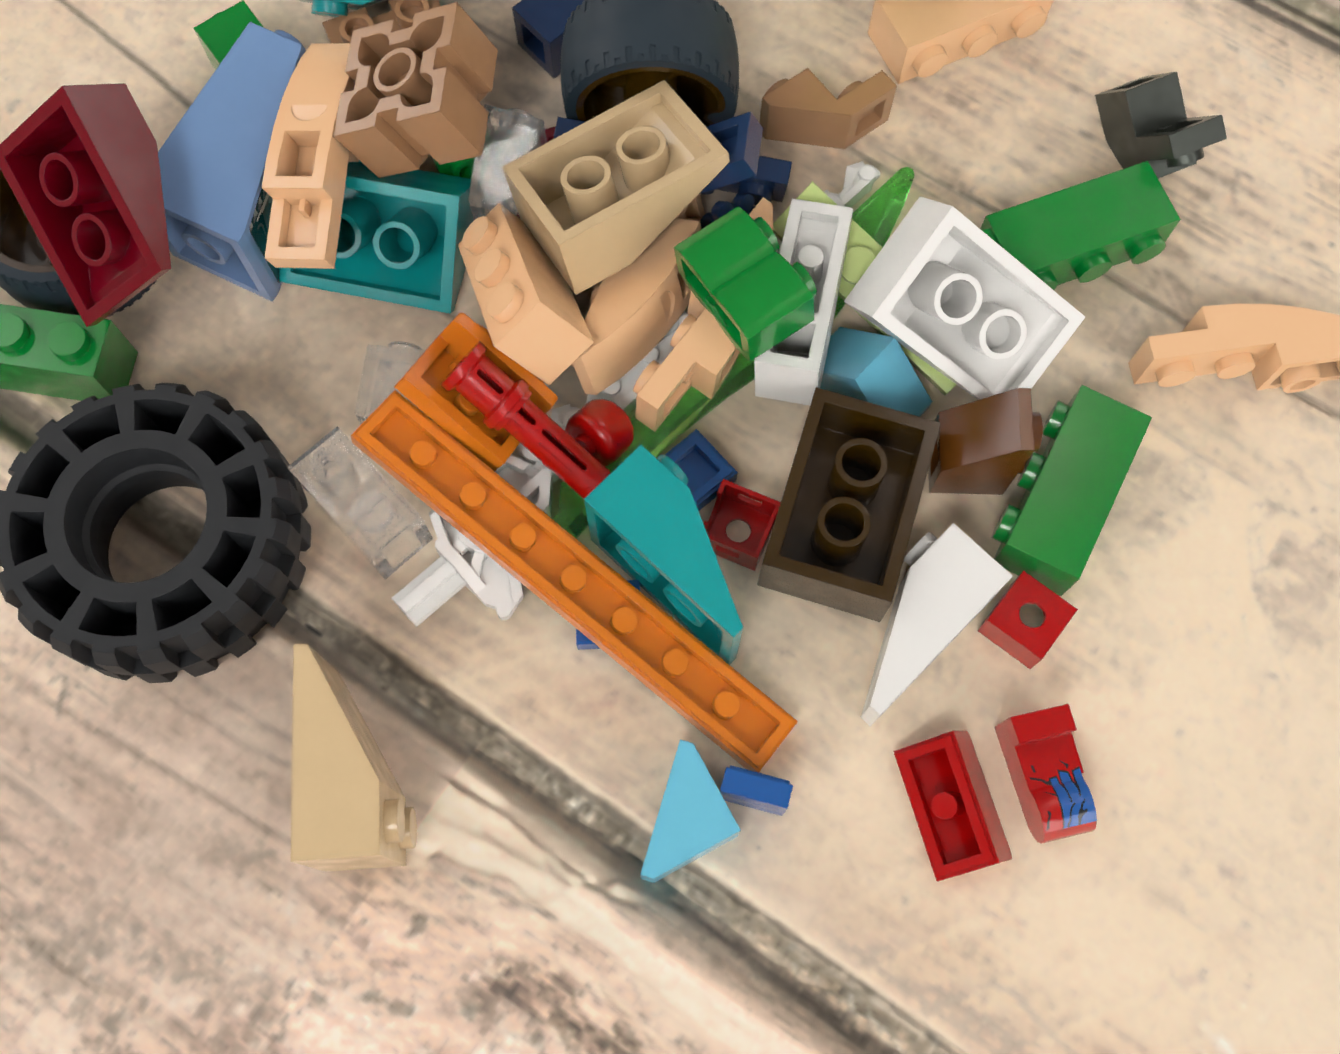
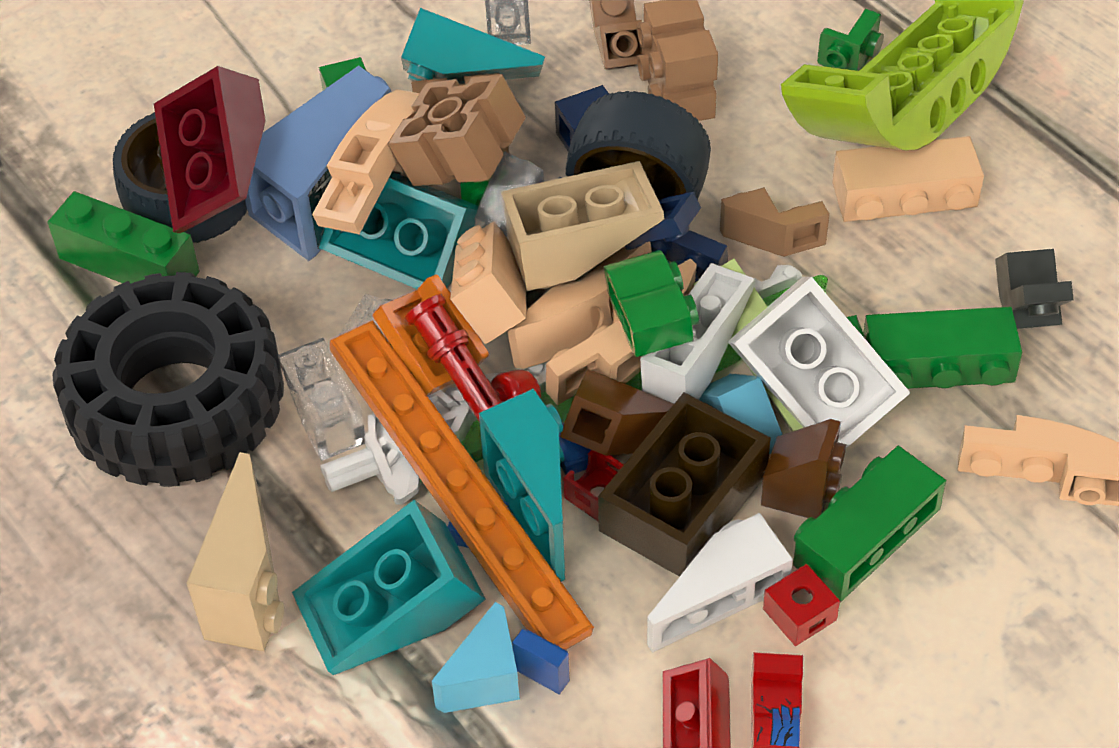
camera: 20 degrees right, 20 degrees down
(535, 750) = (388, 590): none -> teal slope
(734, 435) = (611, 415): none -> reddish brown slope

